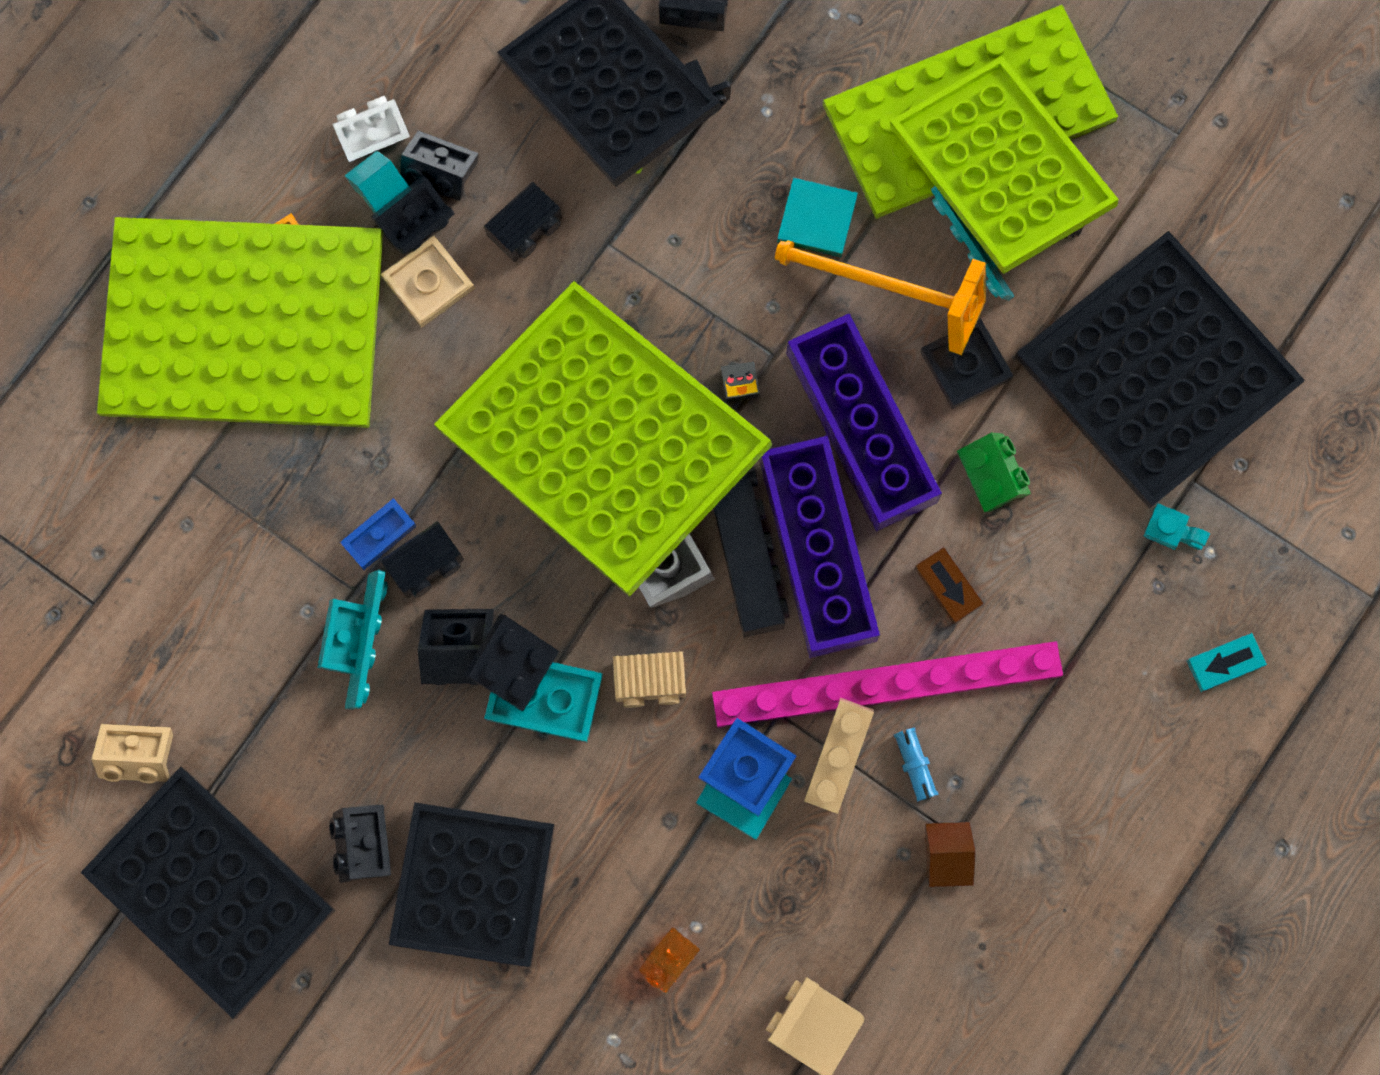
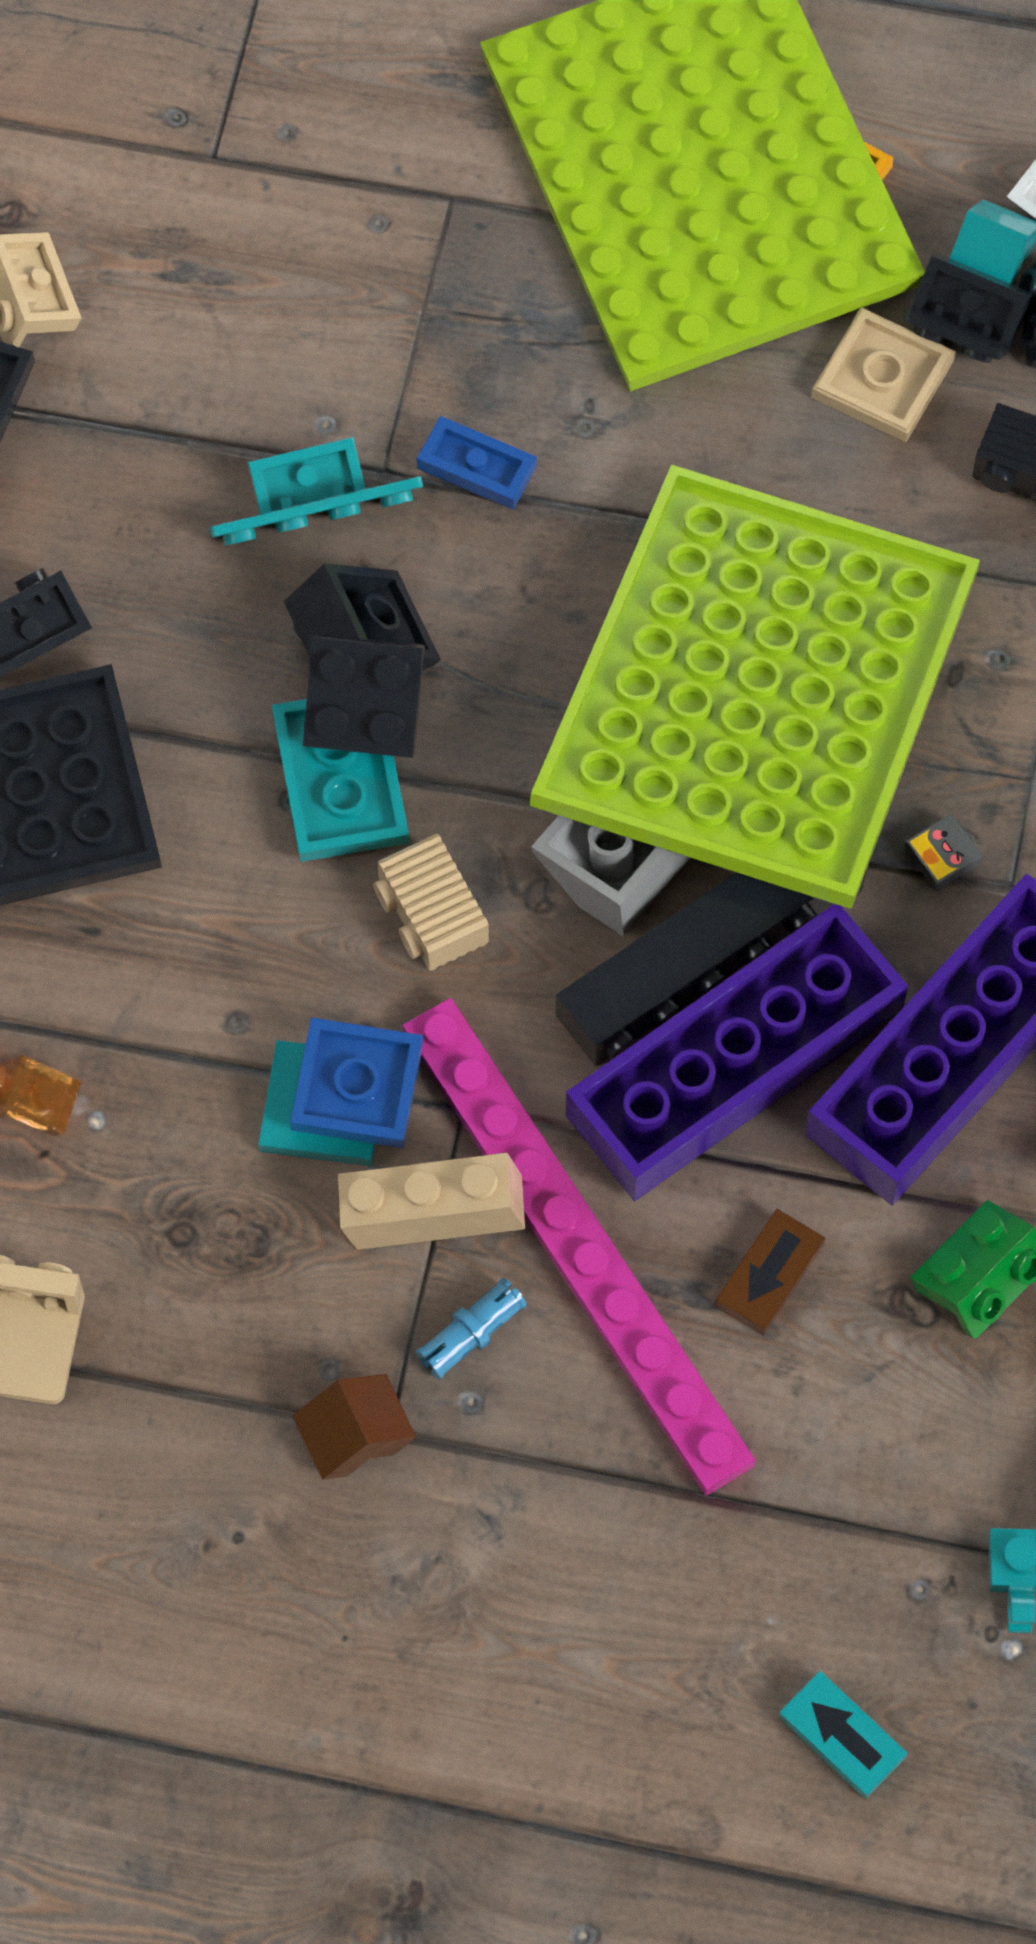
camera: 65 degrees right, 10 degrees down
(423, 561) = (464, 533): black brick -> none

